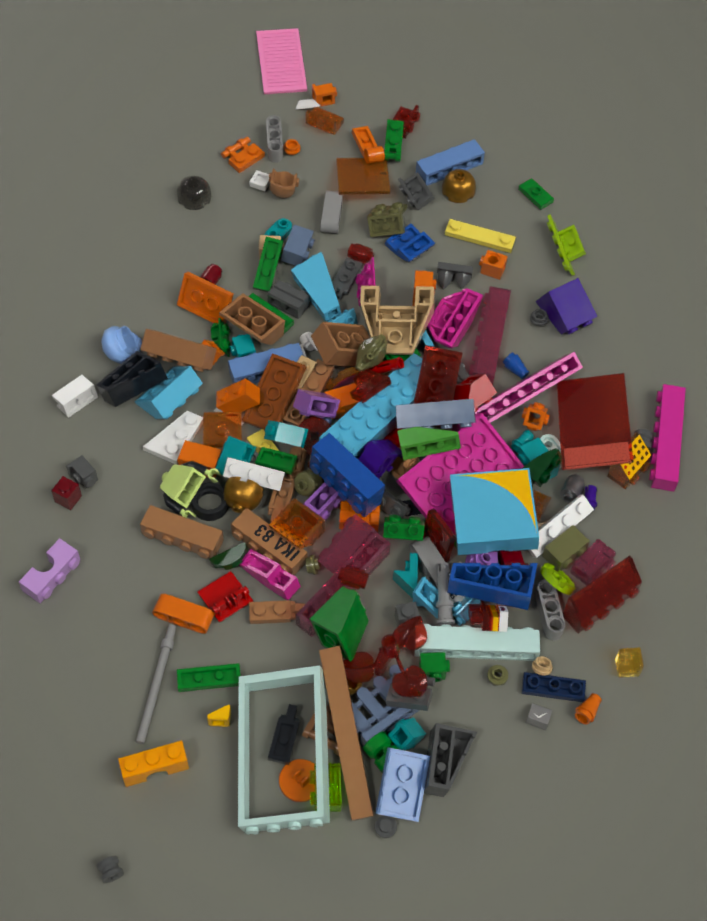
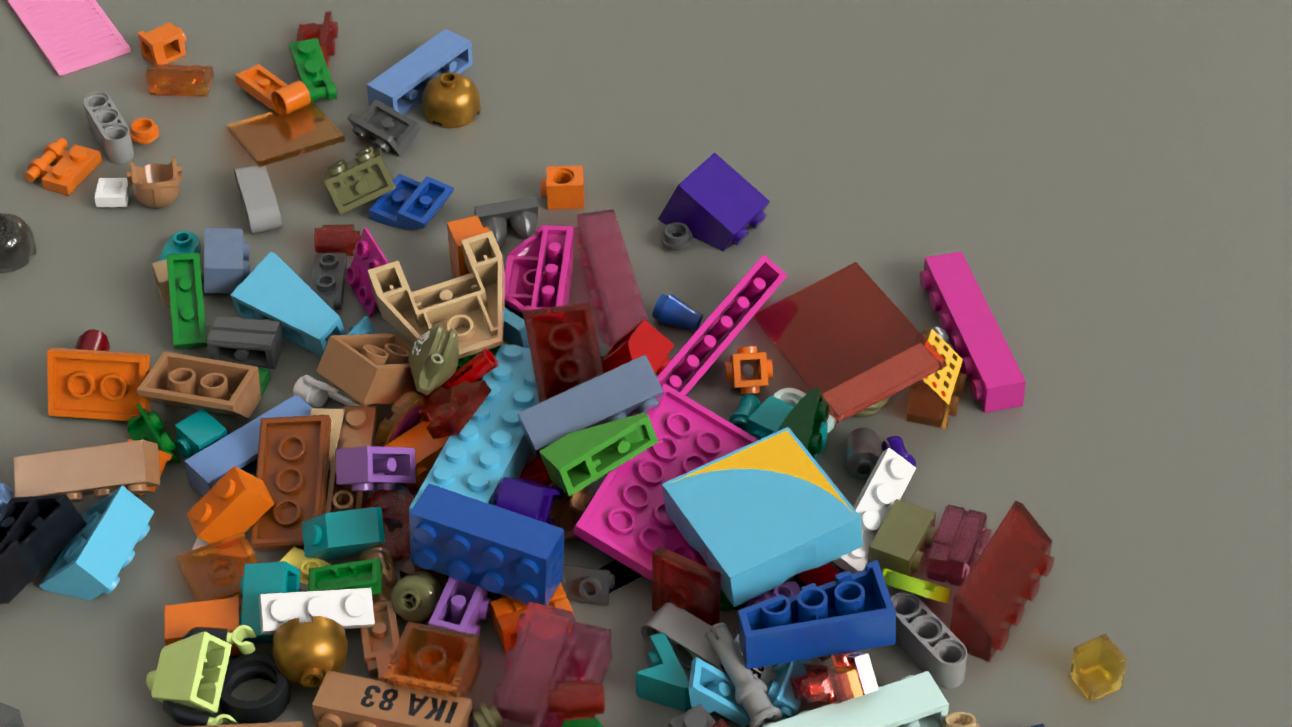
camera: 20 degrees left, 15 degrees down
(171, 439) = (138, 619): white wing -> none
(309, 103) = (140, 66): white sticker -> none
(403, 528) = (611, 603): green plate -> none
(480, 235) = (519, 158): light yellow plate -> none
(536, 194) = (580, 76): green plate -> none
(569, 244) = (669, 122): lime bracket -> none

